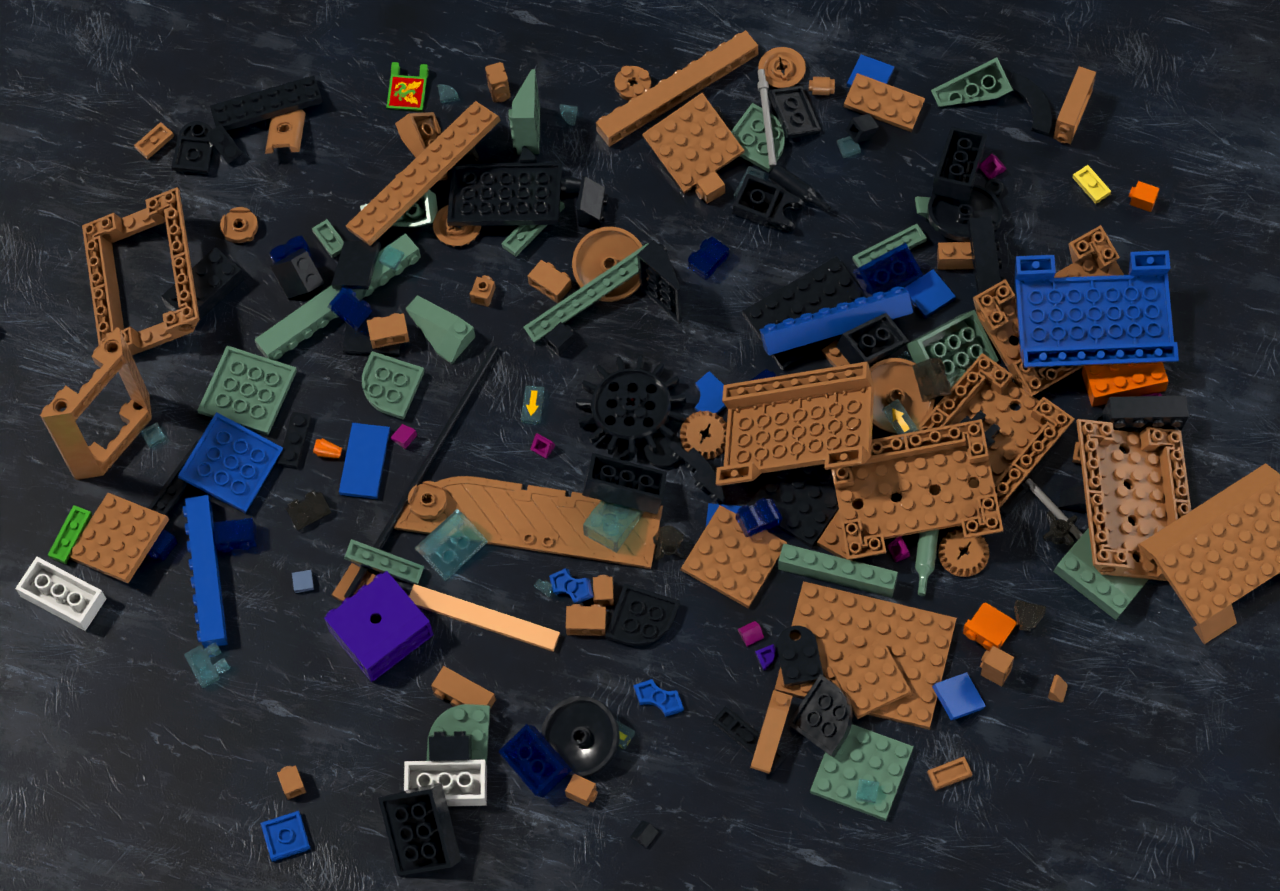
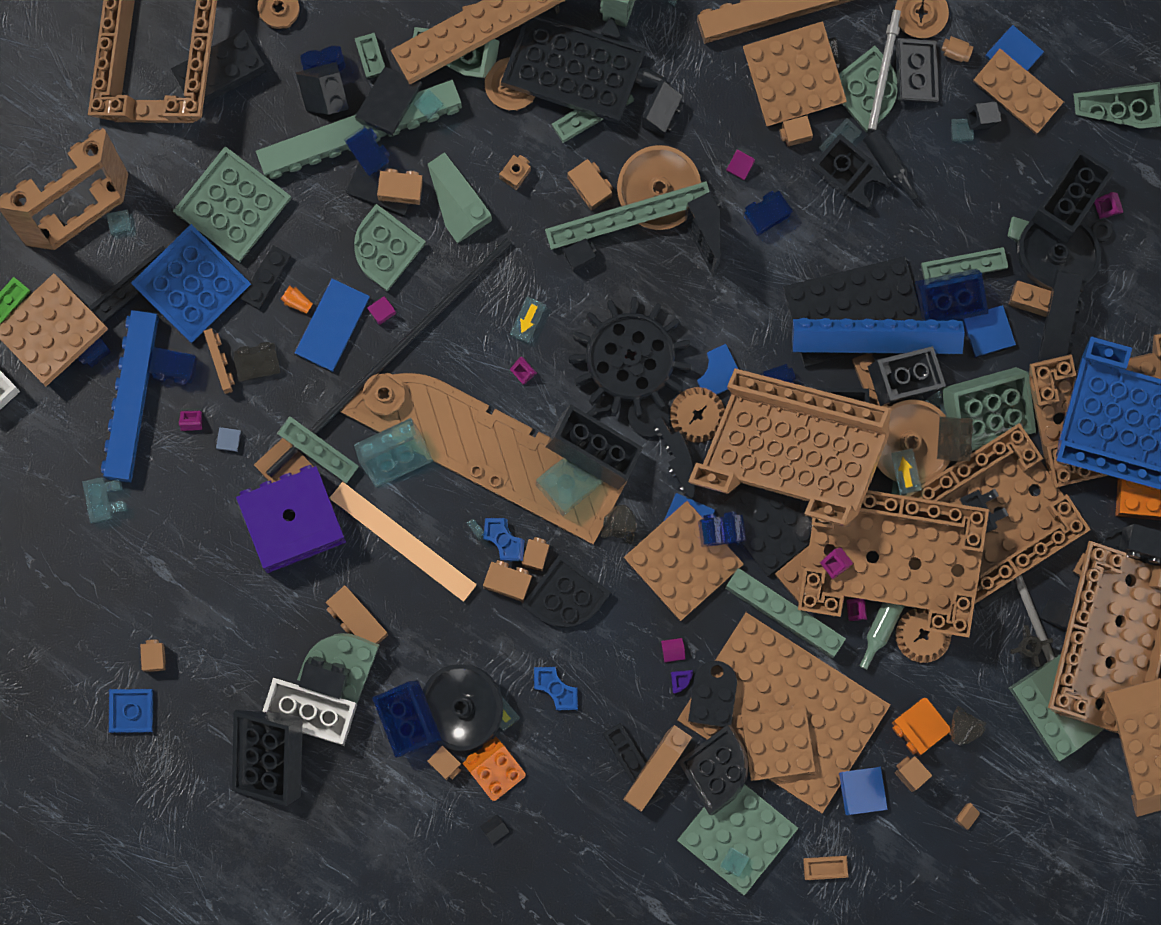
camera: 10 degrees right, 15 degrees up
(264, 576) = (190, 420): none -> magenta slope
(275, 518) = (219, 360): none -> medium nougat plate
(627, 781) = (494, 768): none -> orange bracket
(672, 228) = (740, 164): none -> magenta slope
(866, 510) = (836, 562): none -> magenta slope

